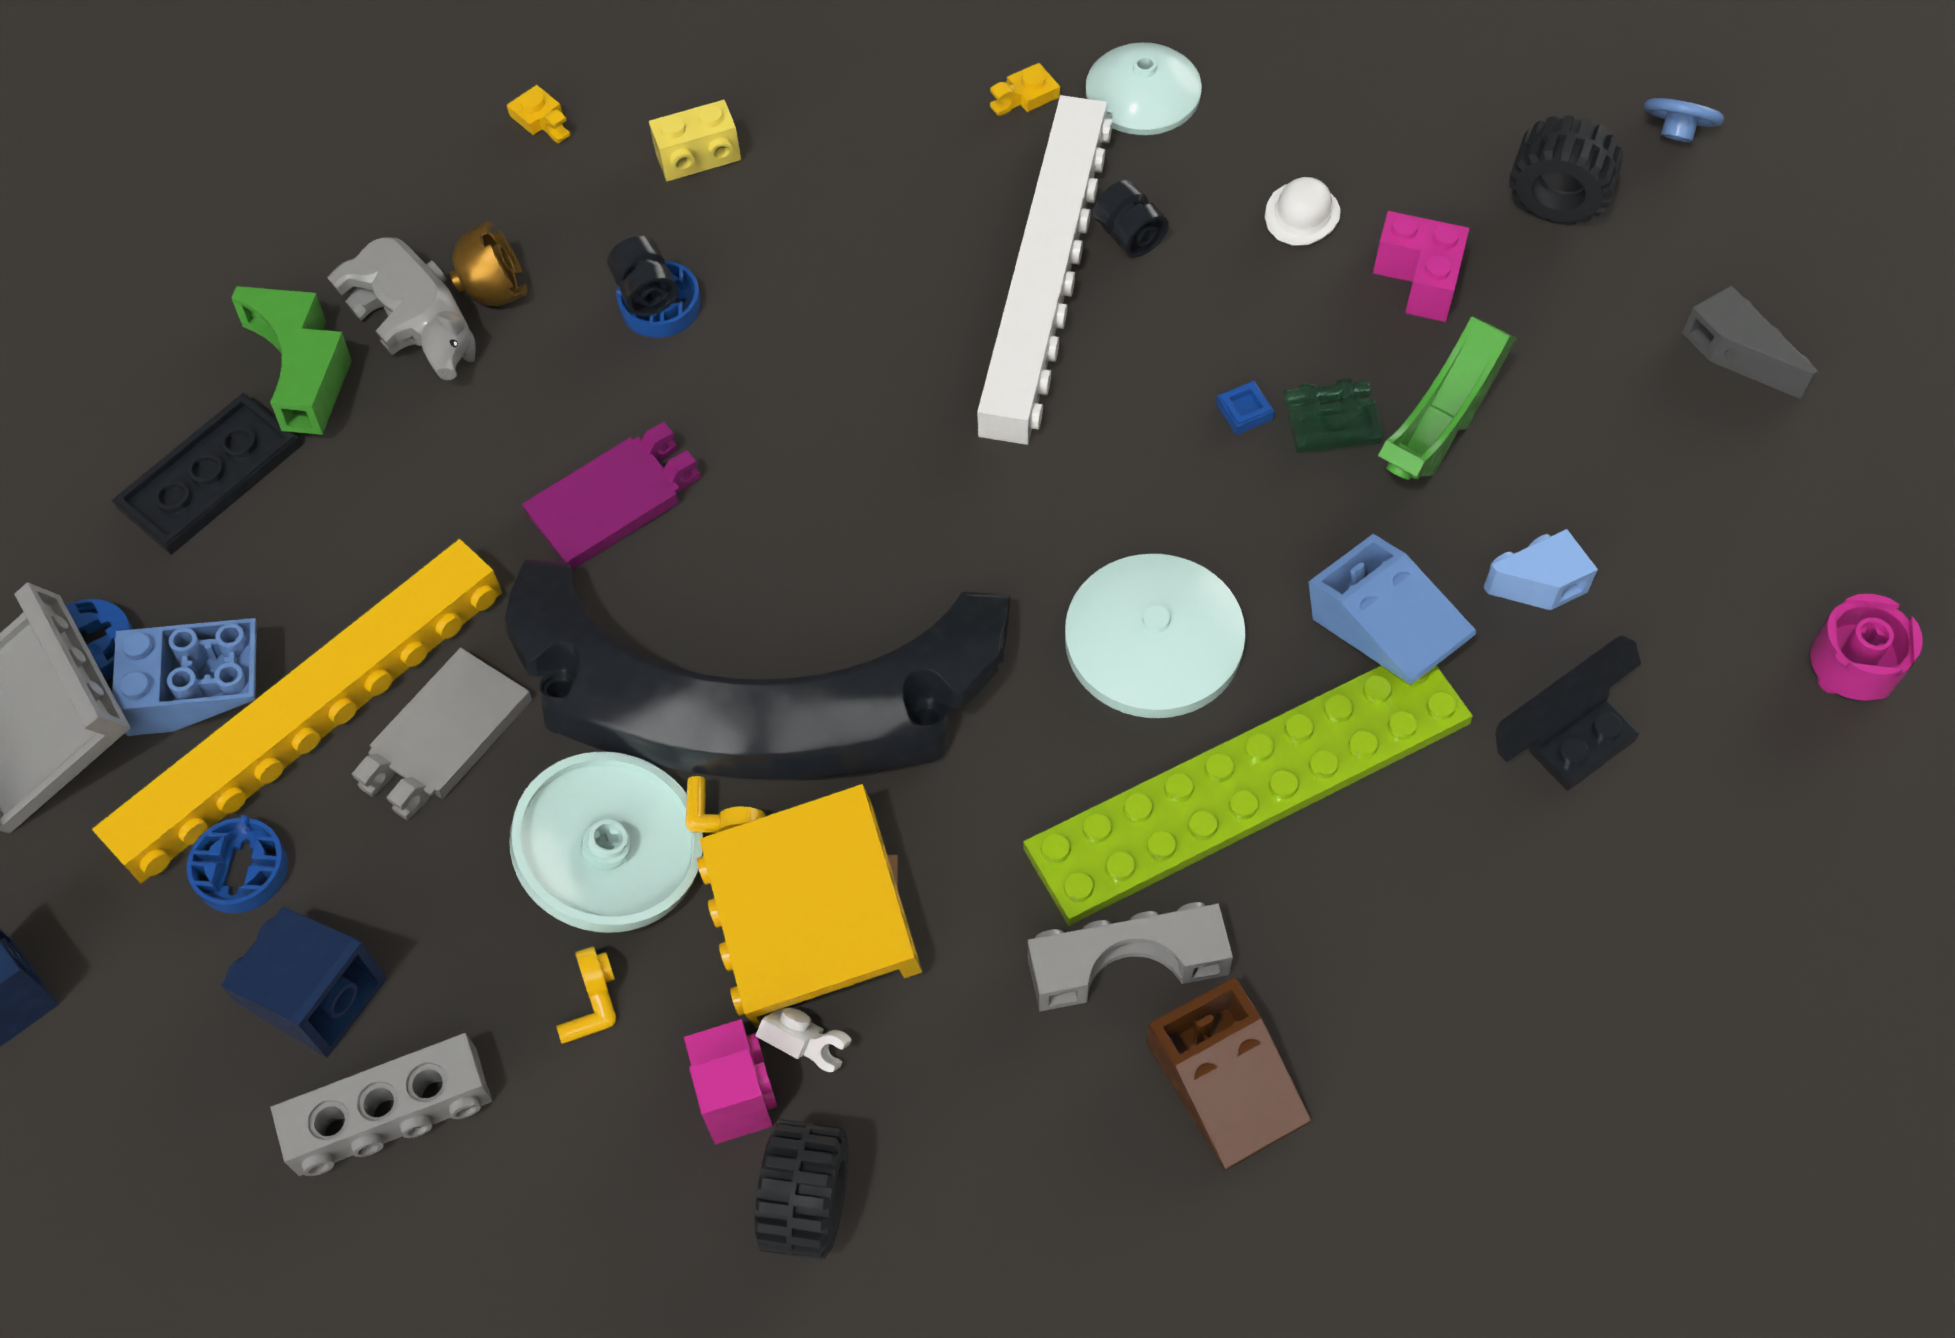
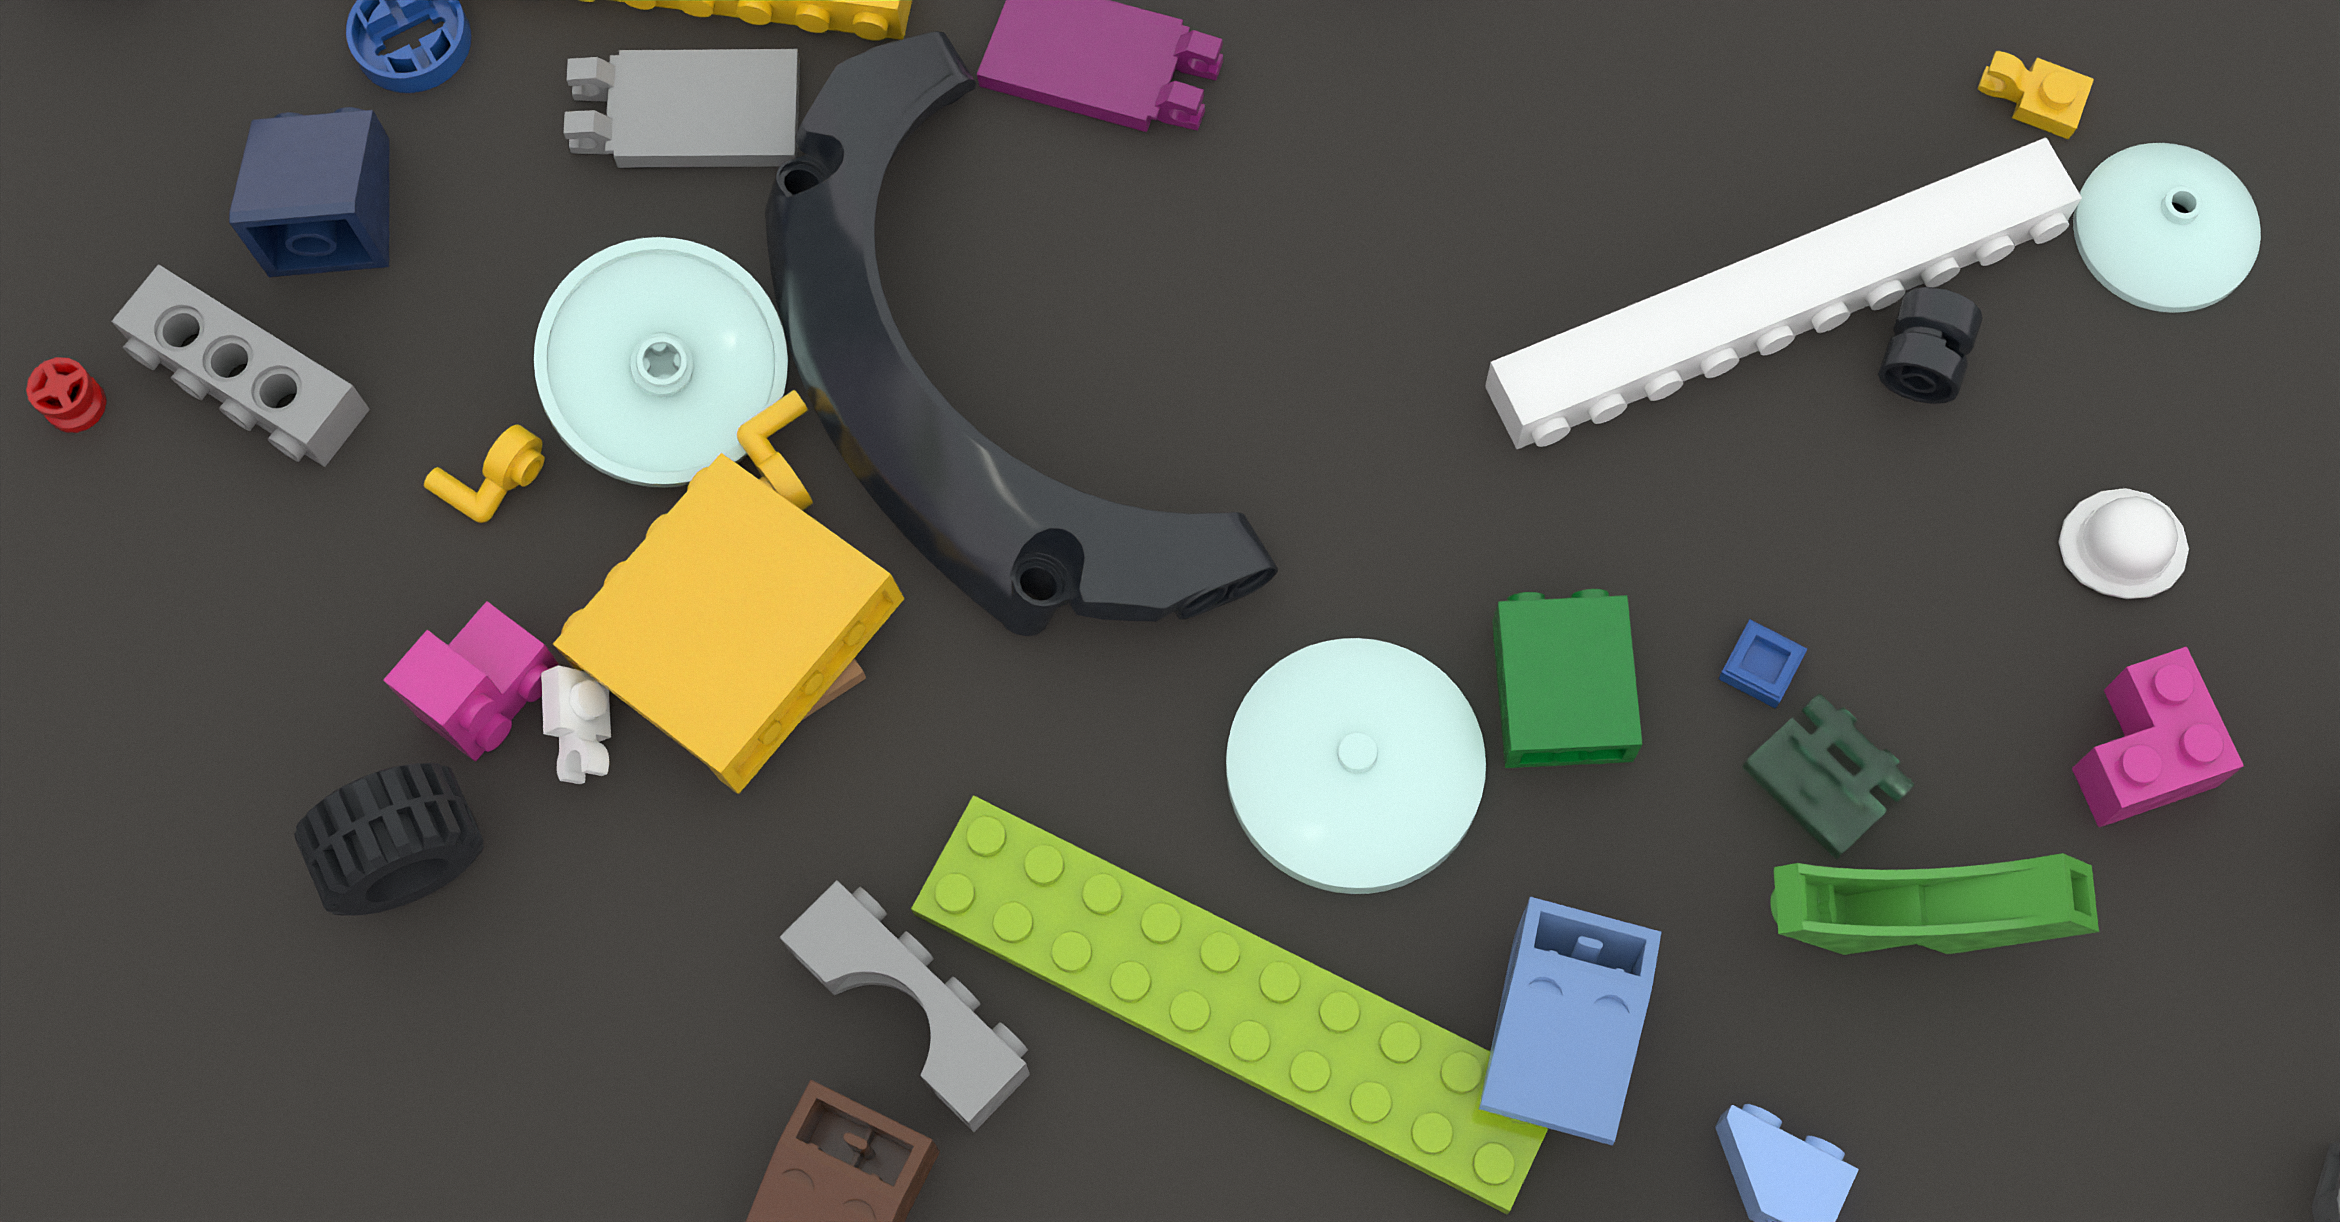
camera: 55 degrees right, 10 degrees up
(292, 1227) = (50, 393): none -> red wheel
(1186, 498) = (1566, 680): none -> green brick

